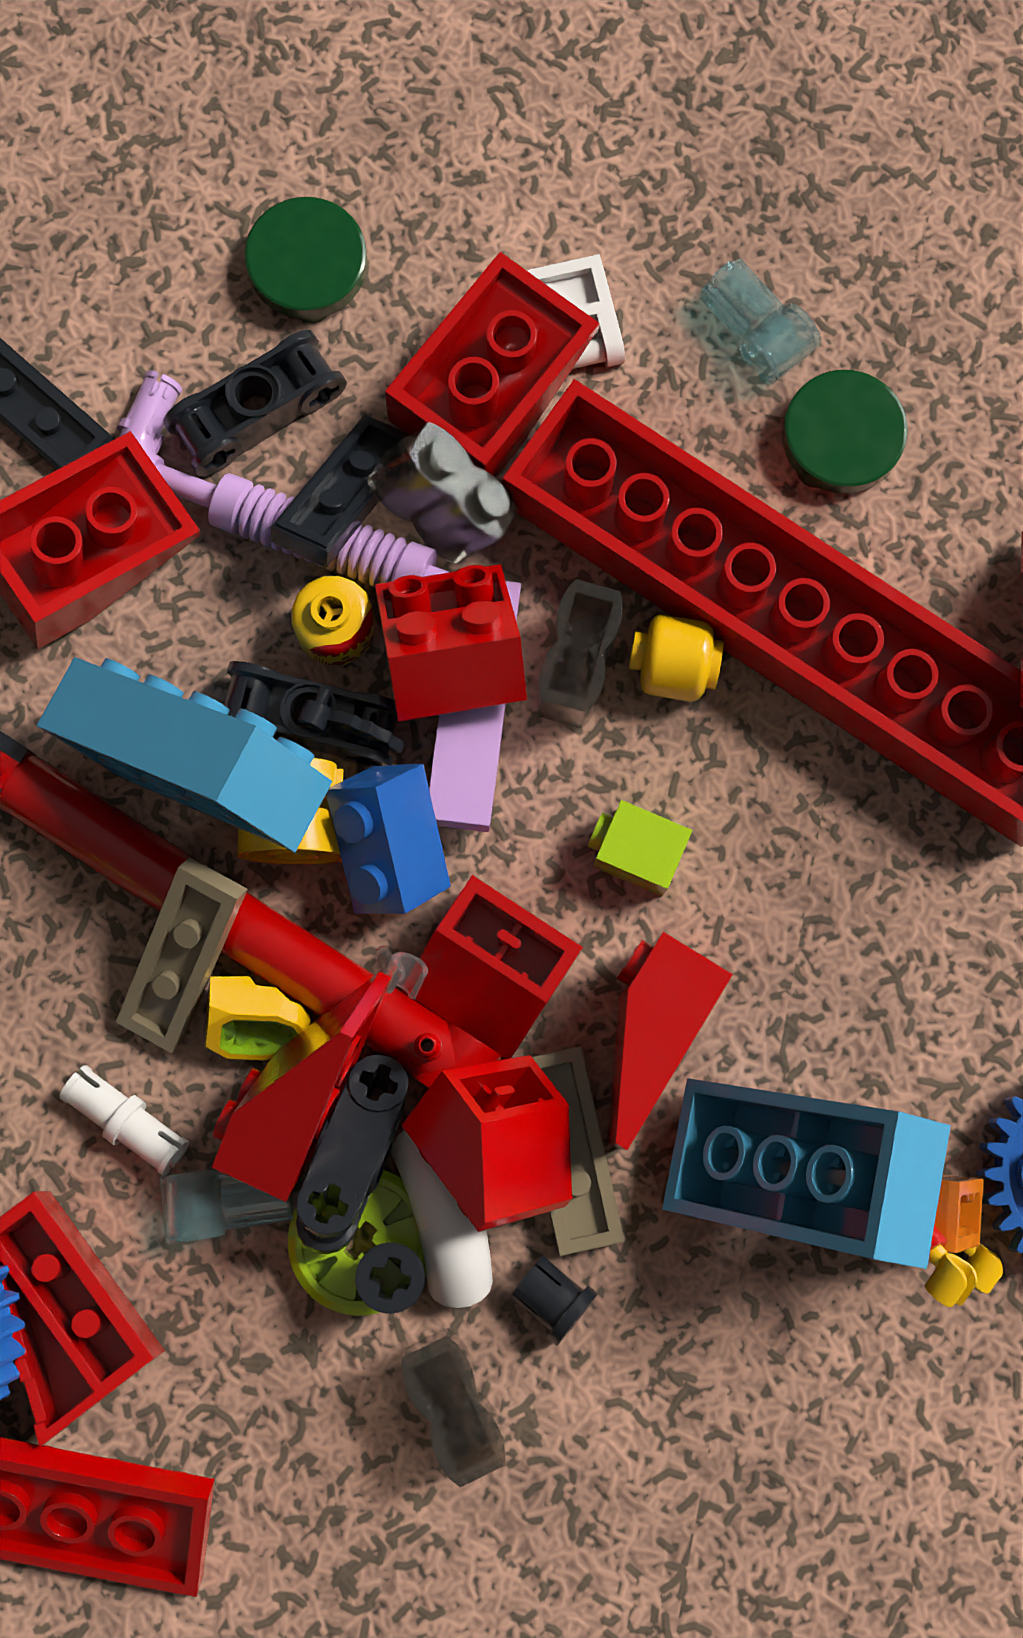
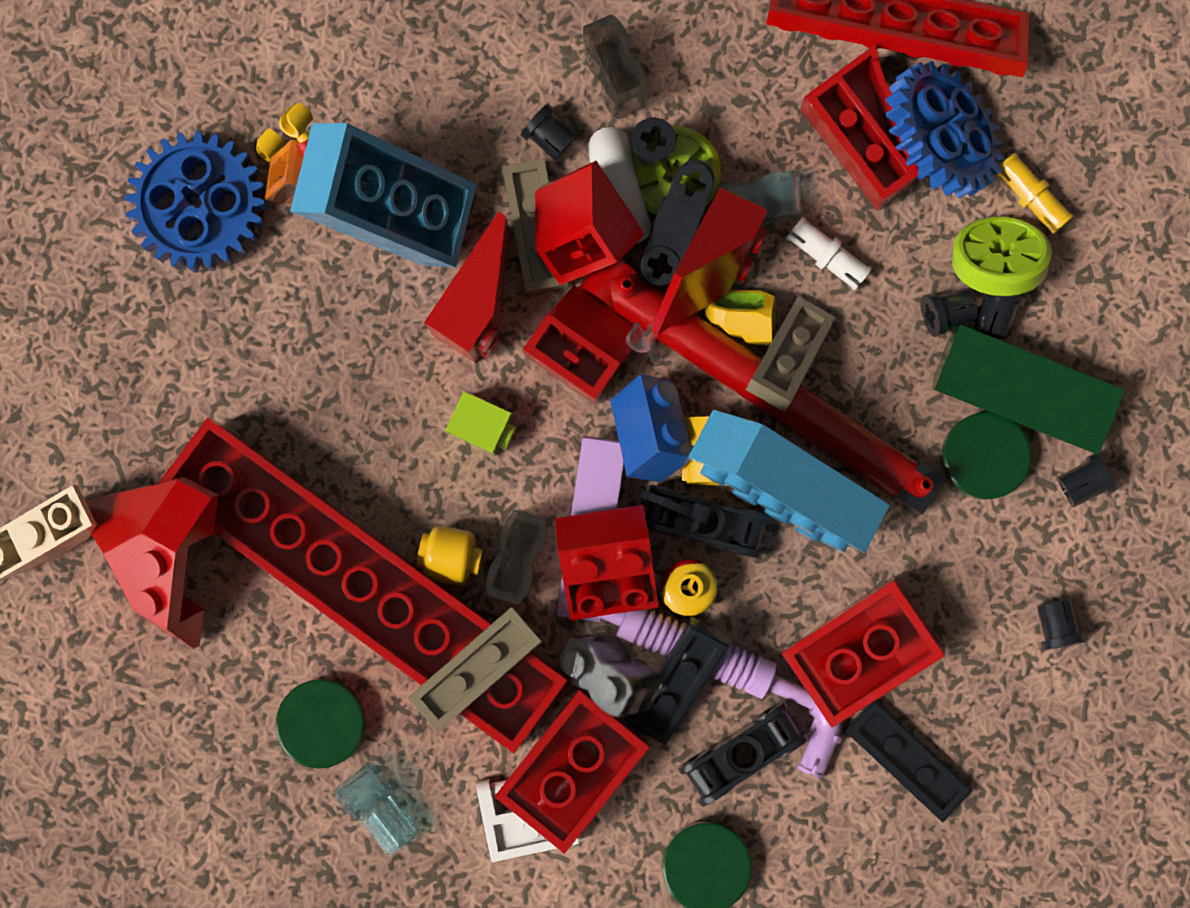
camera: 170 degrees left, 5 degrees up
(633, 482) = (474, 669): none -> dark tan plate

